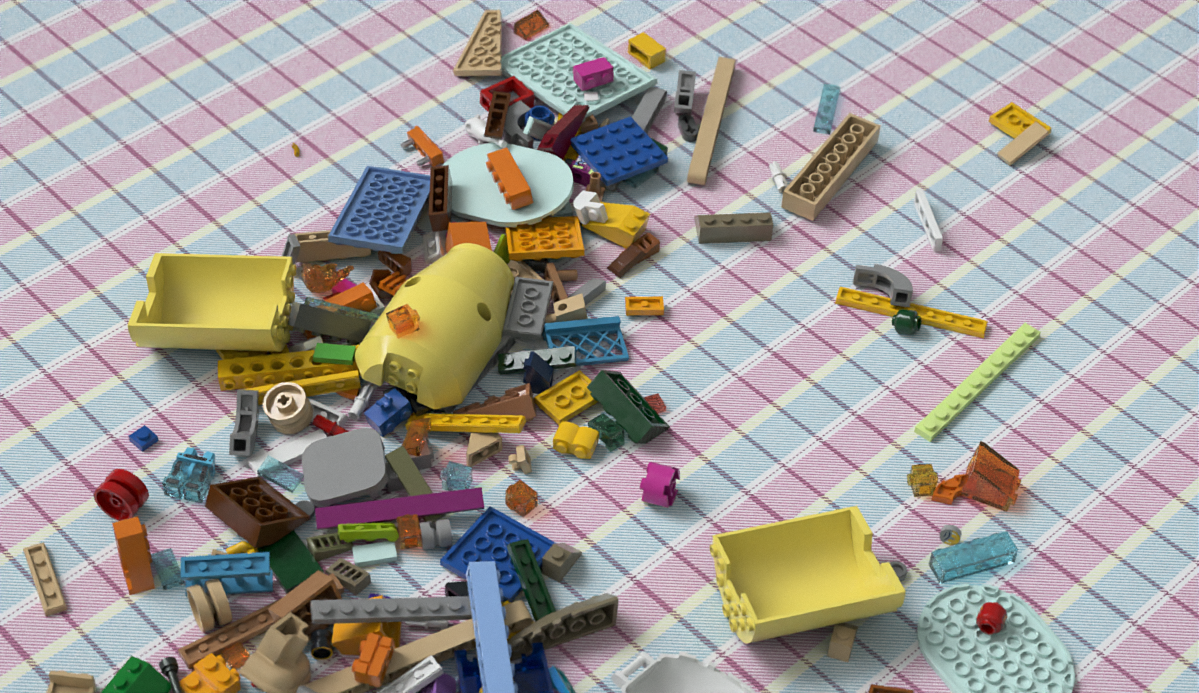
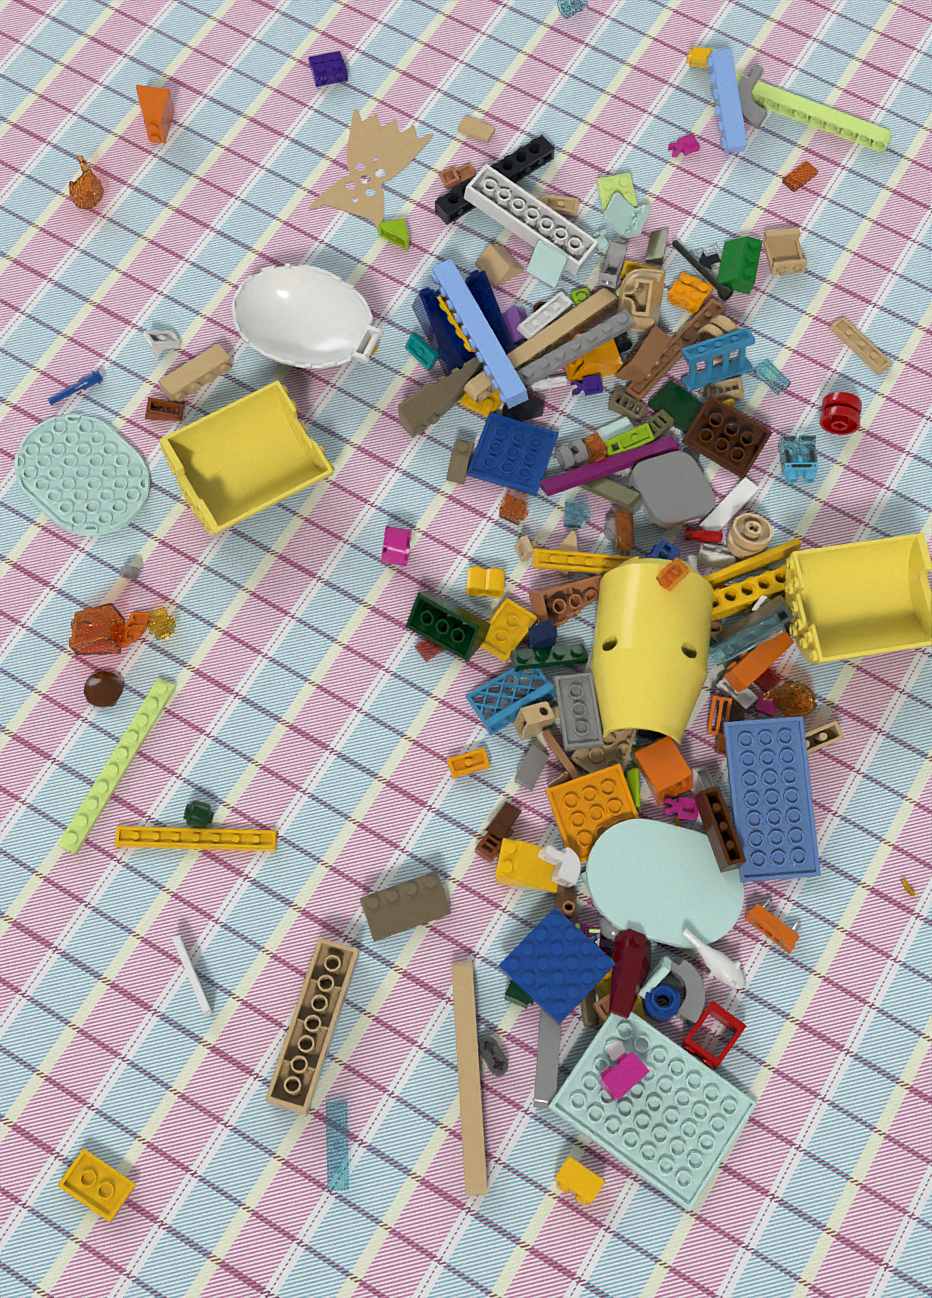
camera: 165 degrees right, 20 degrees up
(133, 554) = (800, 361): orange wedge -> none
(143, 438) = (859, 489): blue plate -> none
(235, 656) = (680, 319): clear orange tile -> none
(246, 424) = (775, 509): light grey arch -> none
(280, 474) = (726, 480): clear light blue tile -> none
(291, 248) = (835, 714): light grey tile -> none
(334, 353) = (733, 593): bright green tile -> none
(373, 660) = (571, 315): orange brick -> none
(484, 49) = (773, 1110): tan wing -> none
(497, 115) = (708, 975): reddish brown slope -> none
(509, 178) = (657, 867): orange brick -> none
(530, 25) = (735, 1190): clear orange slope -> none
(531, 579) = (476, 426): dark green plate -> none
(608, 431) = (462, 598): clear green leg -> none
(685, 92) = (509, 1096): light grey arch -> none
(778, 176) = (371, 999): white axle -> none
(886, 279) = (212, 855): light grey arch -> none
(900, 570) = (174, 529): light grey tile -> none
(973, 557) = (107, 553): clear light blue brick -> none
(991, 437) = (103, 689): none -> reddish brown dish
(991, 618) = (86, 490): red head -> none
(1023, 143) = (90, 1140): tan tile -> none

